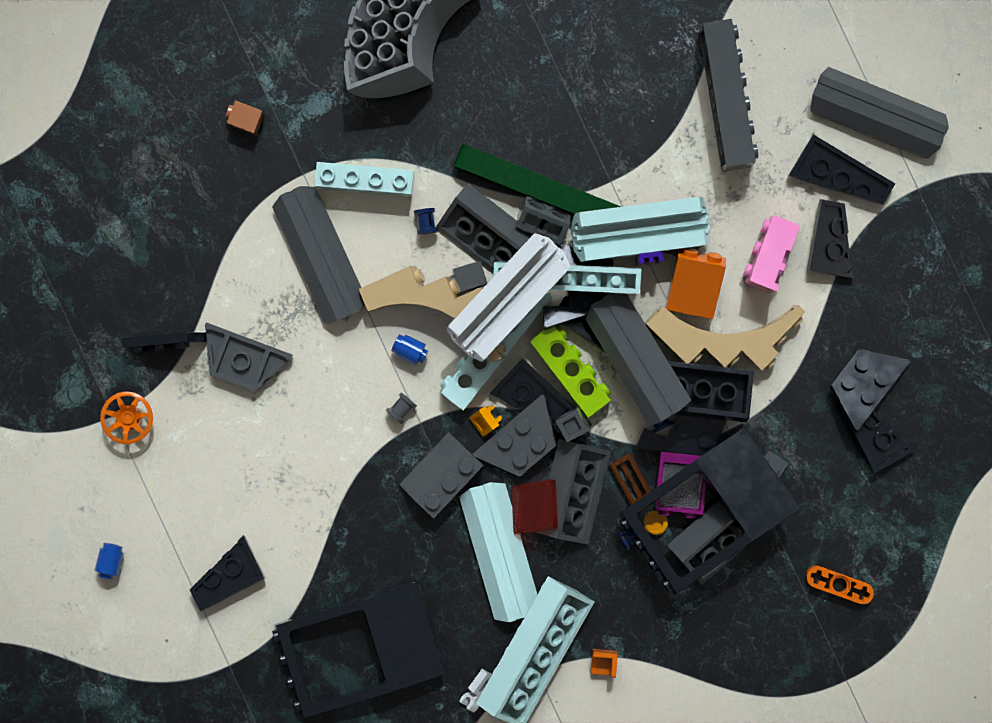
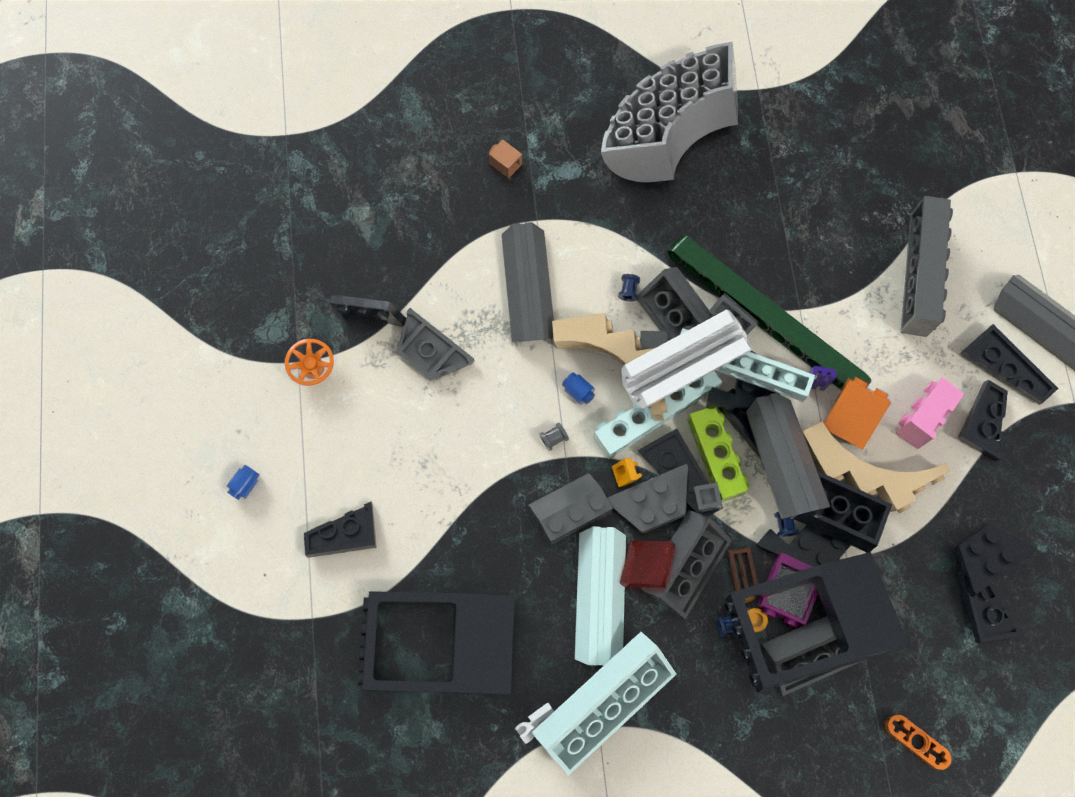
camera: 20 degrees right, 15 degrees down
(364, 179) = (588, 236): light aqua brick -> none
(604, 662) = (667, 738): orange panel -> none
(640, 229) = (820, 345): light aqua piece -> none

